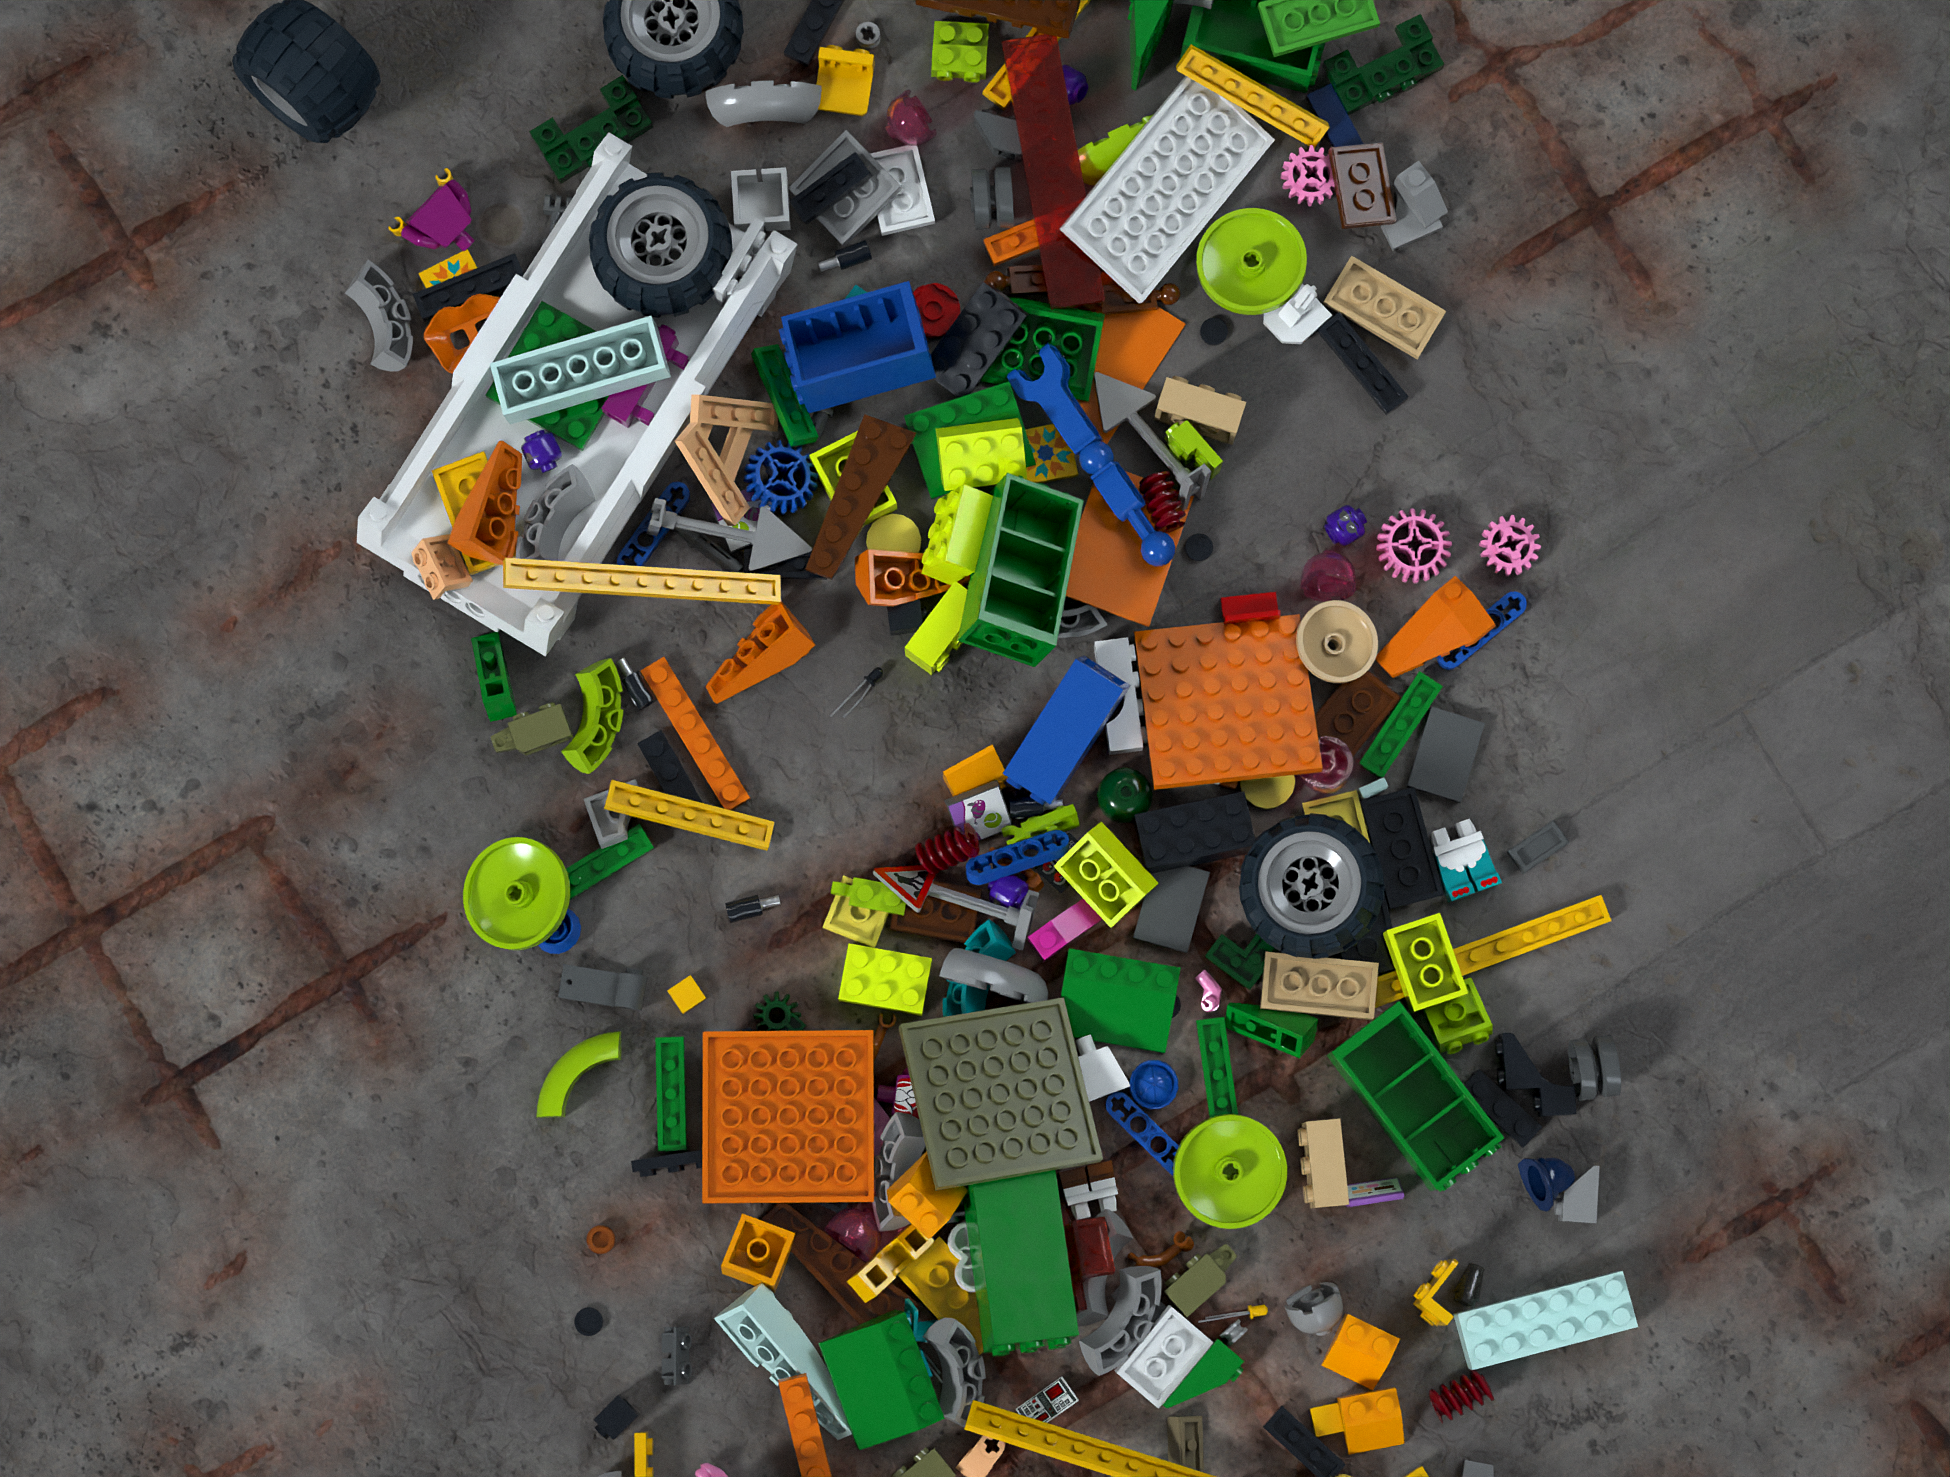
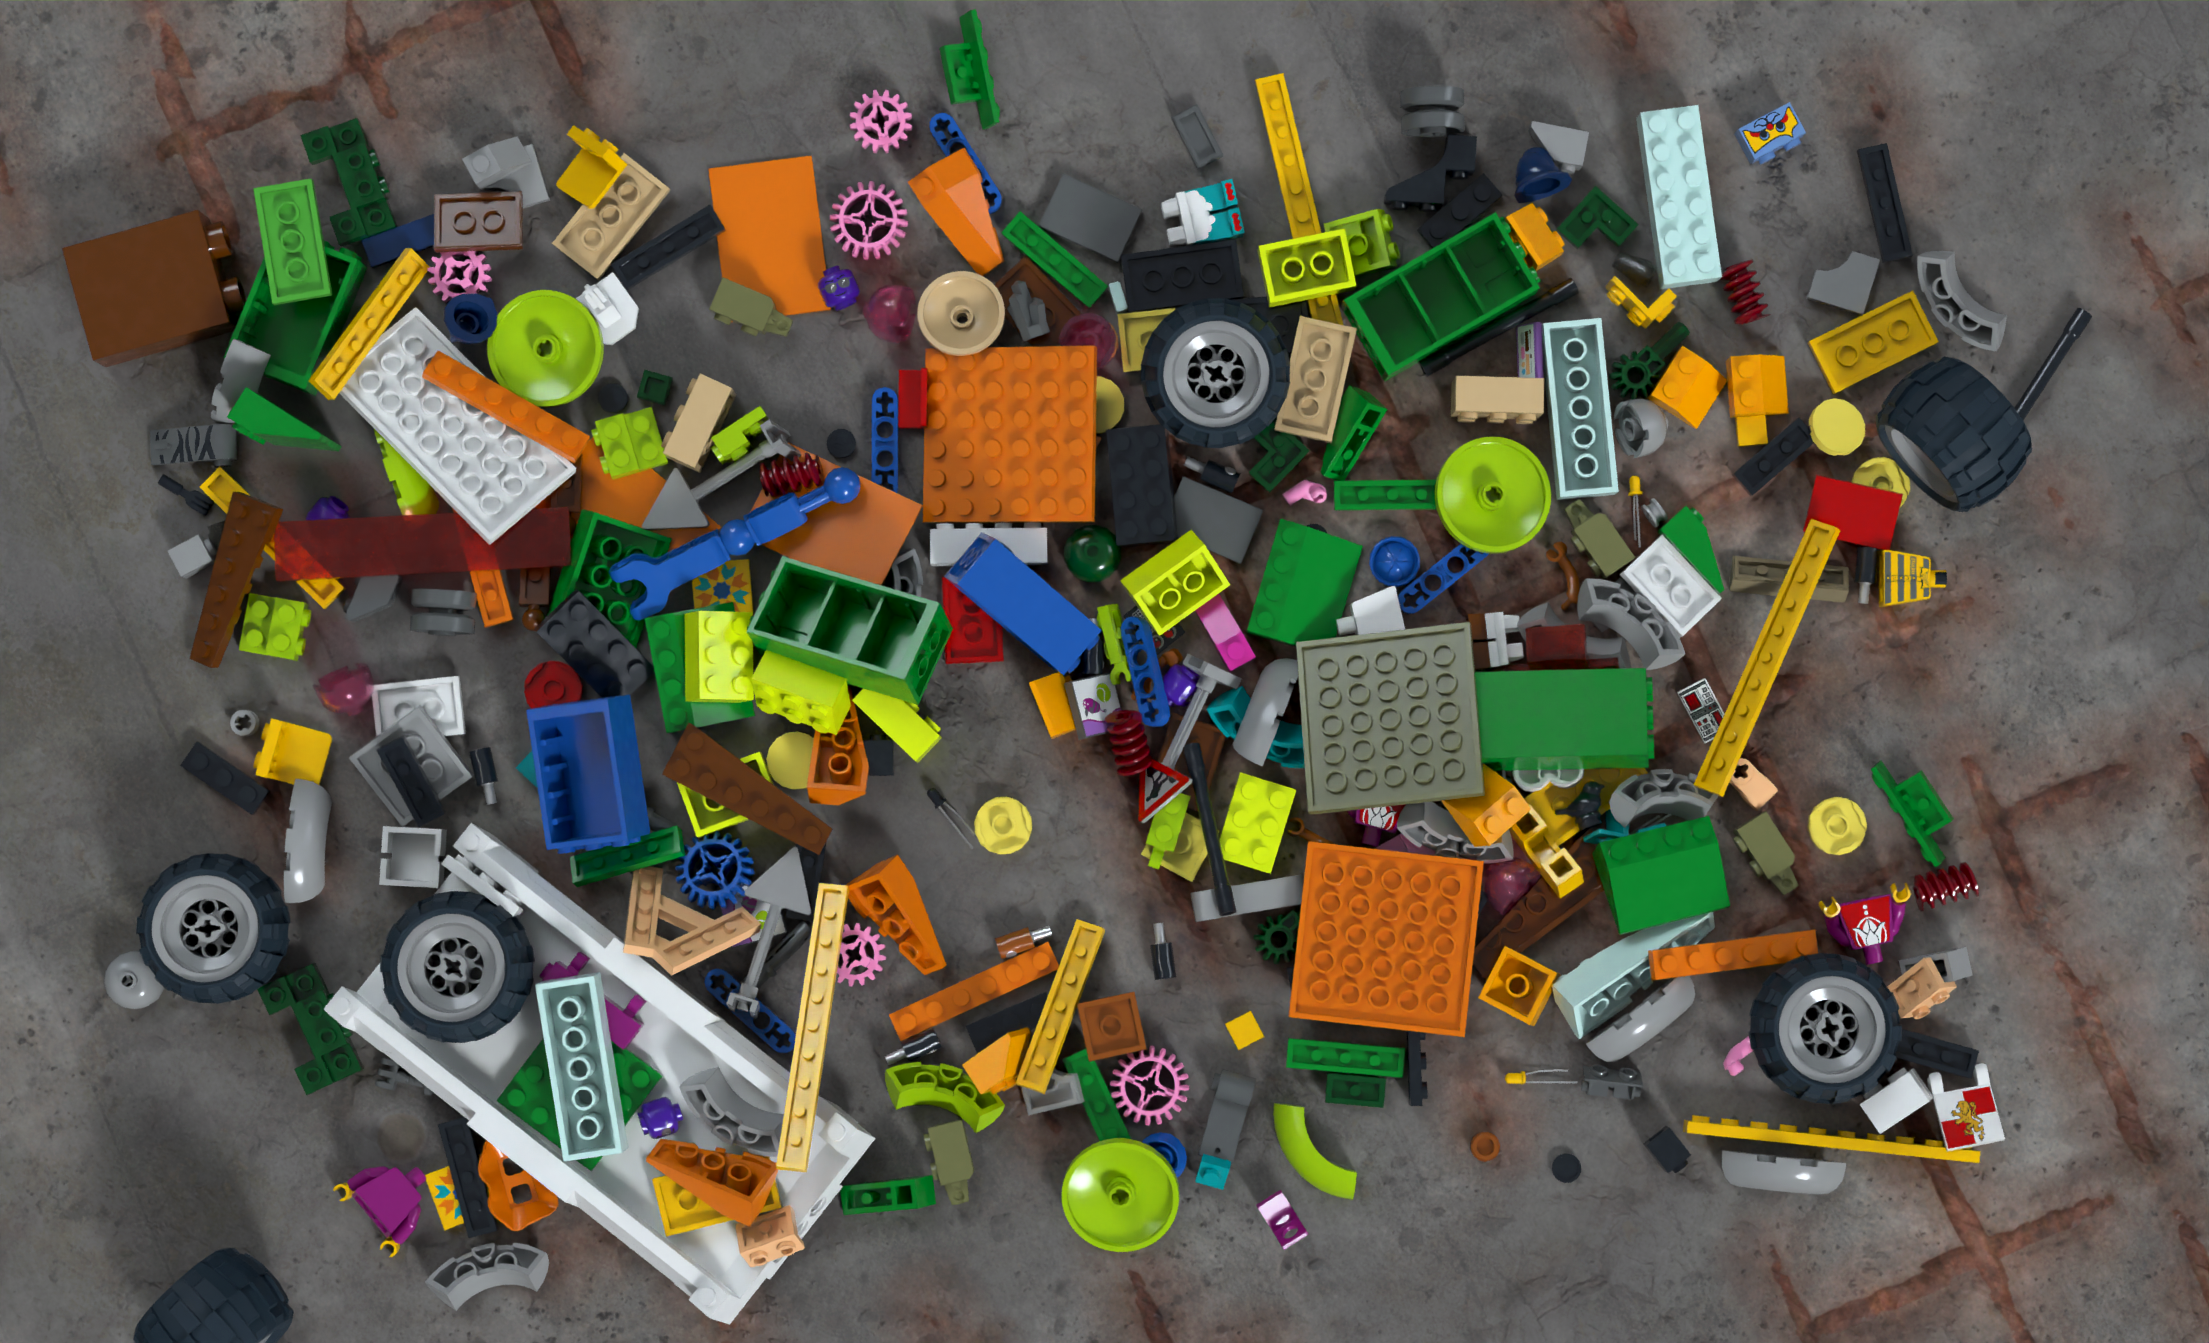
camera: 85 degrees left, 5 degrees up
(510, 1050) = (1281, 1219): none -> magenta bracket
(548, 980) = (1213, 1171): none -> teal plate
(627, 896) = (1140, 1109): none -> bright pink gear
(629, 762) = (999, 1063): none -> light orange slope
(641, 1107) = (1355, 1090): none -> dark green plate
(669, 1260) = (1520, 1078): none -> piece
(675, 864) = (1111, 1026): none -> dark orange bracket
(712, 629) = (866, 961): none -> bright pink gear
(738, 1379) = (1644, 1021): none -> light grey brick
(747, 771) = (1020, 941): none -> dark orange piece
(812, 979) = (1251, 897): none -> light grey beam
(818, 952) = (1222, 890): none -> black piece
(855, 742) = (1003, 825): none -> light yellow tile
(938, 1296) = (1585, 806): none -> black animal
(1032, 687) = (974, 633): none -> red tile
(1173, 349) = (629, 443): none -> lime plate
(1191, 231) = (506, 406): none -> orange plate
(1204, 593) = (885, 444): none -> blue beam
(1216, 902) = (1215, 473): none -> black piece
(1228, 368) = (654, 387): none -> dark green tile
(1270, 187) = (470, 318): none -> dark blue piece
(1314, 445) = (748, 308): none -> olive hinge
(1324, 1245) = (1579, 409): none -> light aqua brick
(1346, 704) = (1027, 312): none -> dark grey rock
(1379, 1309) = (1647, 363): none -> dark green gear
(1384, 459) = (771, 231): none -> orange piece
(1425, 283) = (592, 169): none -> yellow bracket
(1430, 1208) = (1445, 356): none -> black piece
(1486, 1181) = (1535, 237): none -> light orange slope
(1518, 1239) = (1597, 212): none -> dark green plate
(1568, 621) = (968, 71): none -> green bracket
(1620, 1404) = (1770, 133): none -> brick

